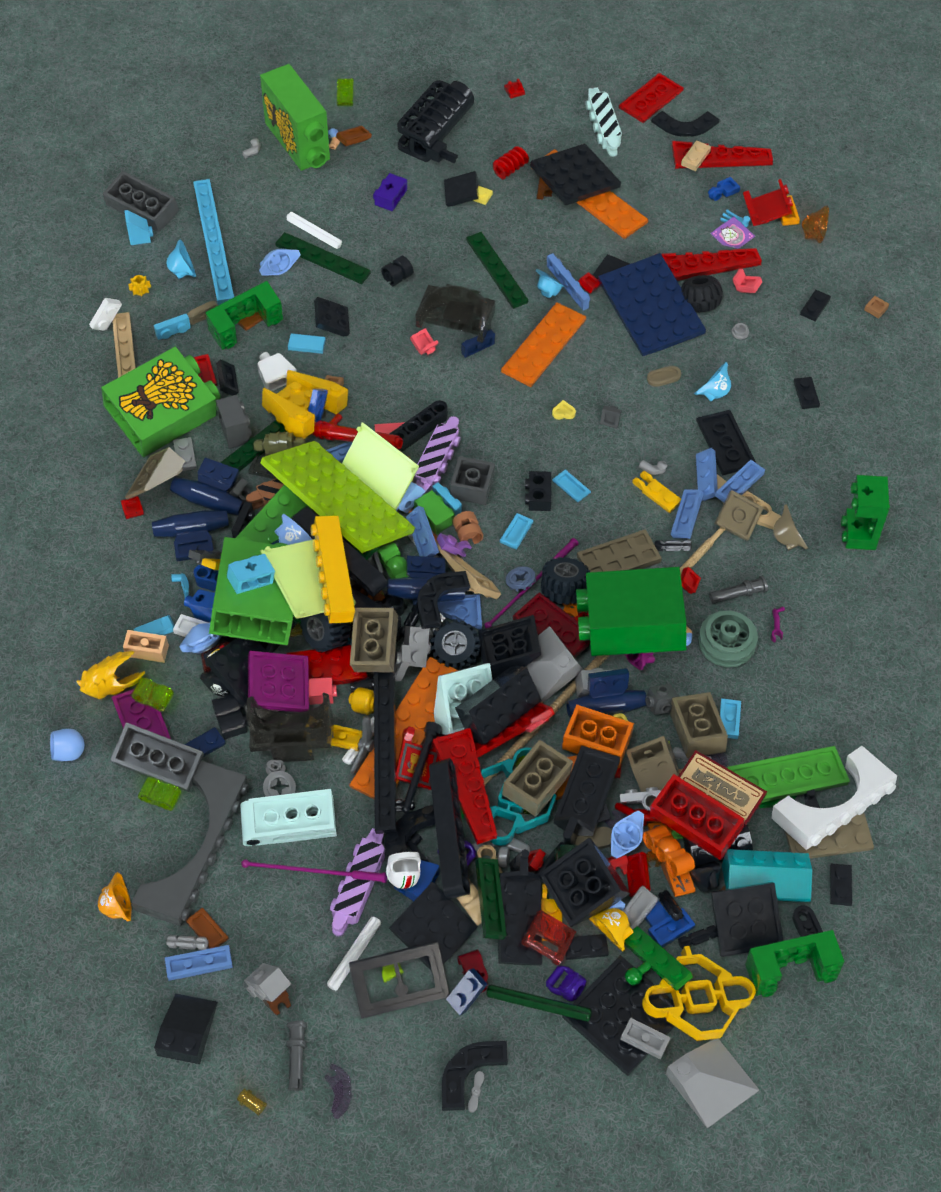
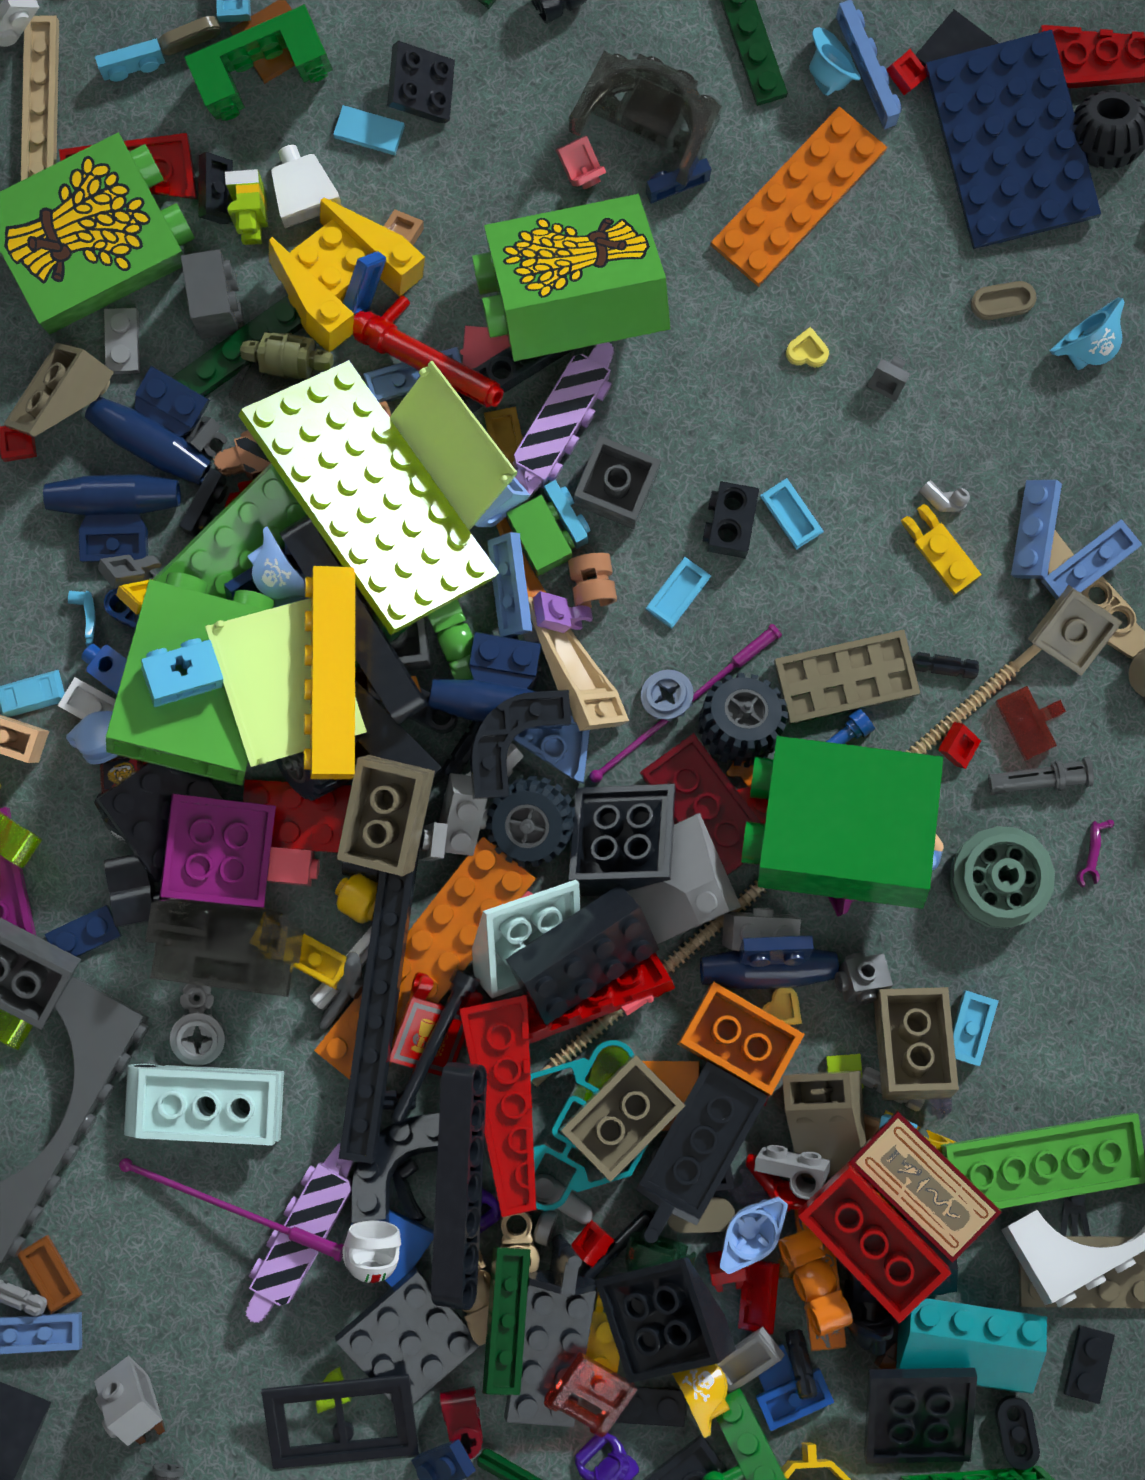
camera: 10 degrees right, 25 degrees up
(246, 379) = (248, 205): none -> lime hips
(354, 953) = (277, 1355): white axle -> none
(431, 384) = (572, 278): none -> bright green brick
(687, 514) = (984, 607): medium blue plate -> none
(698, 937) = (834, 1420): black axle -> none
(725, 565) = (1028, 722): none -> clear red plate
(727, 440) = (1086, 461): black tile -> none

